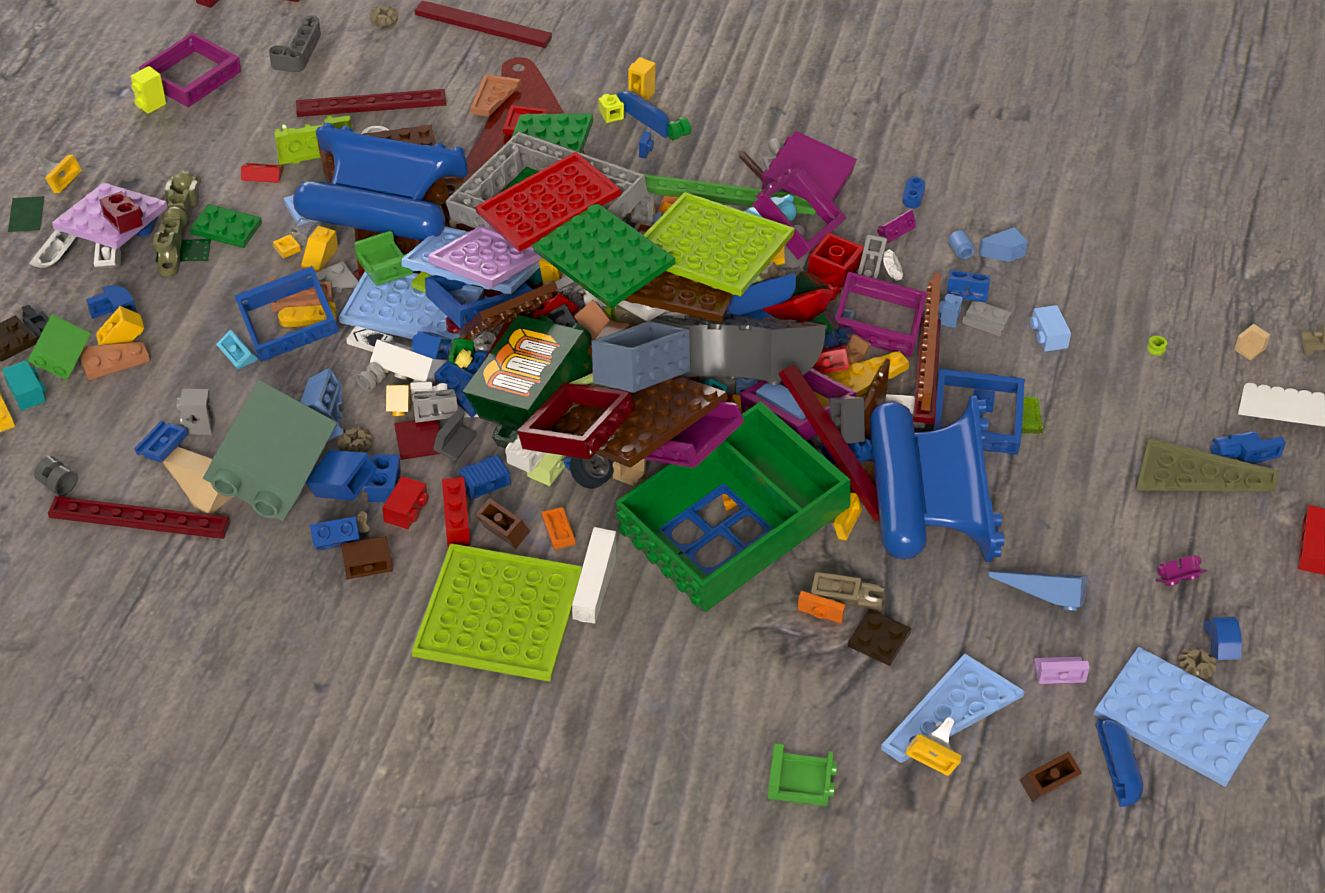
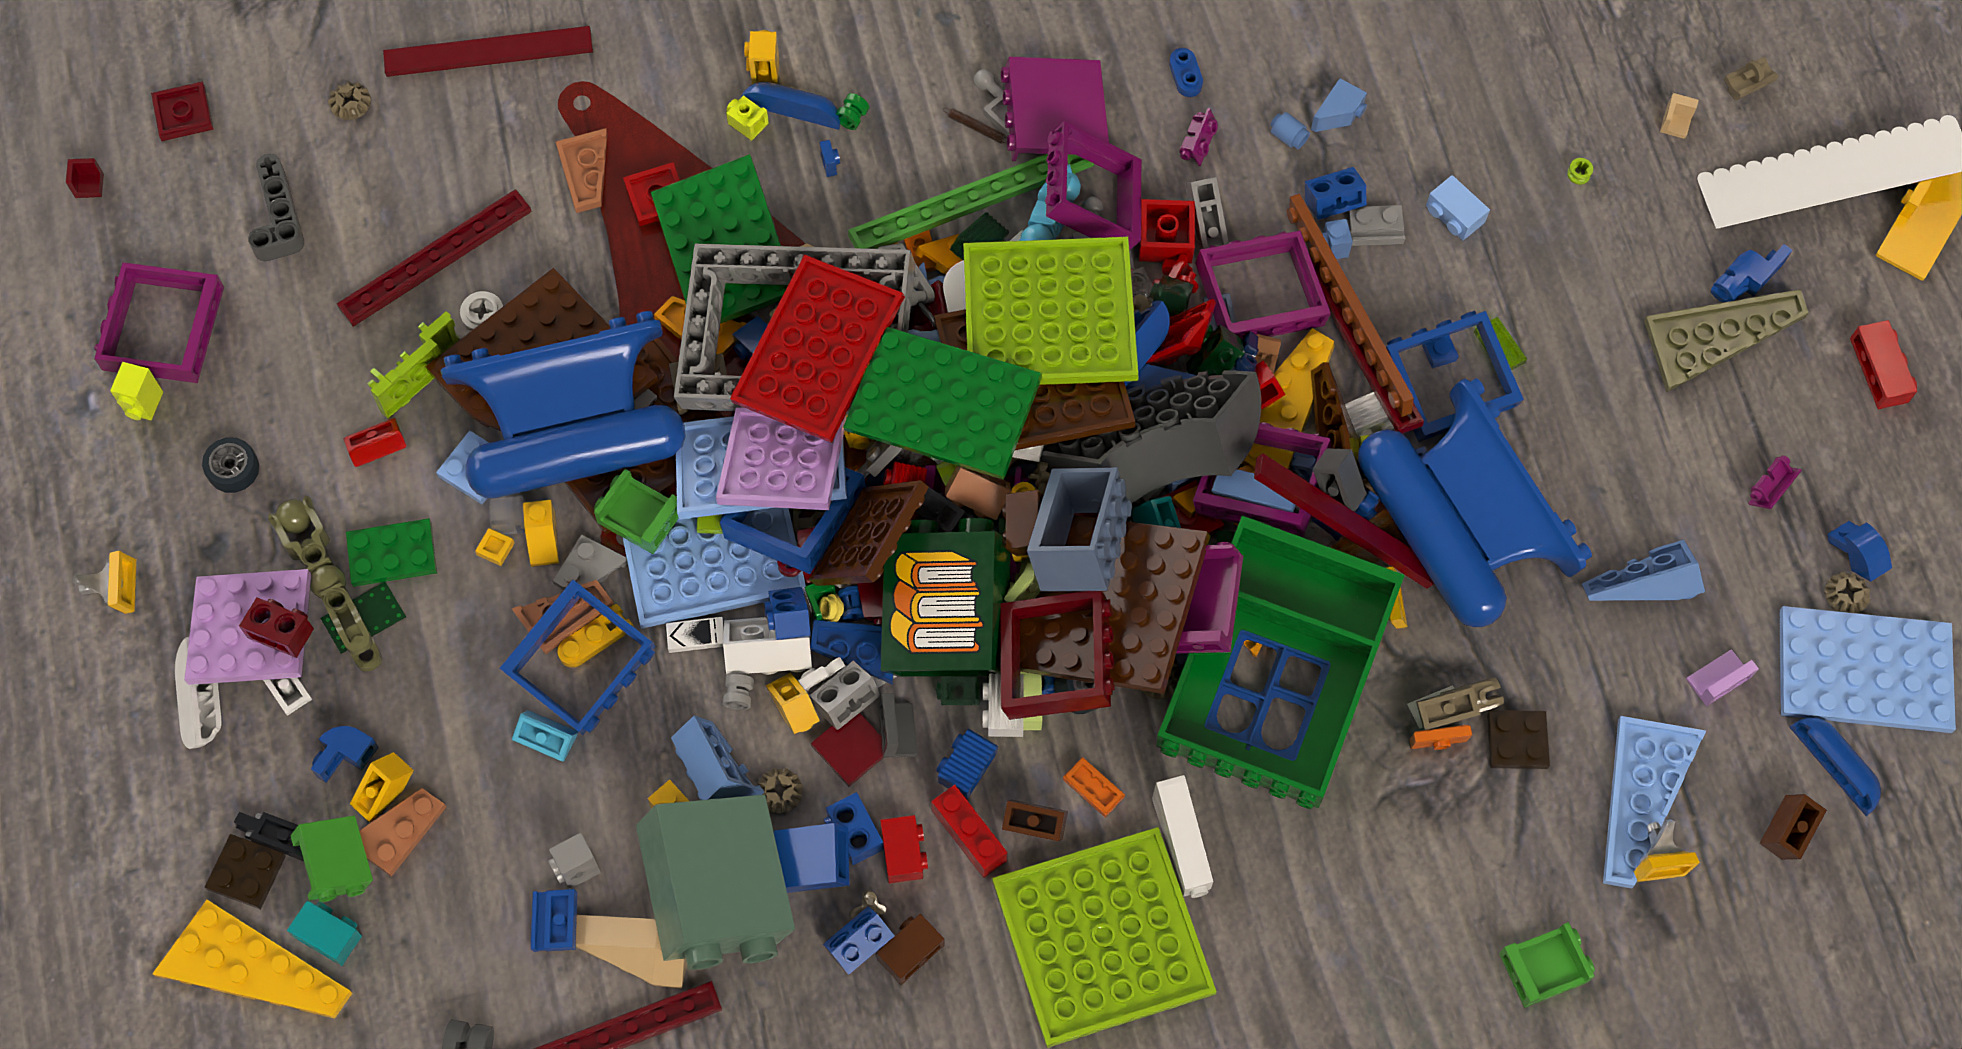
camera: 30 degrees left, 20 degrees up
(26, 214) = (114, 666): dark green sticker -> none
(171, 147) = (232, 452): none -> wheel
(892, 265) = (1234, 205): white gear -> none

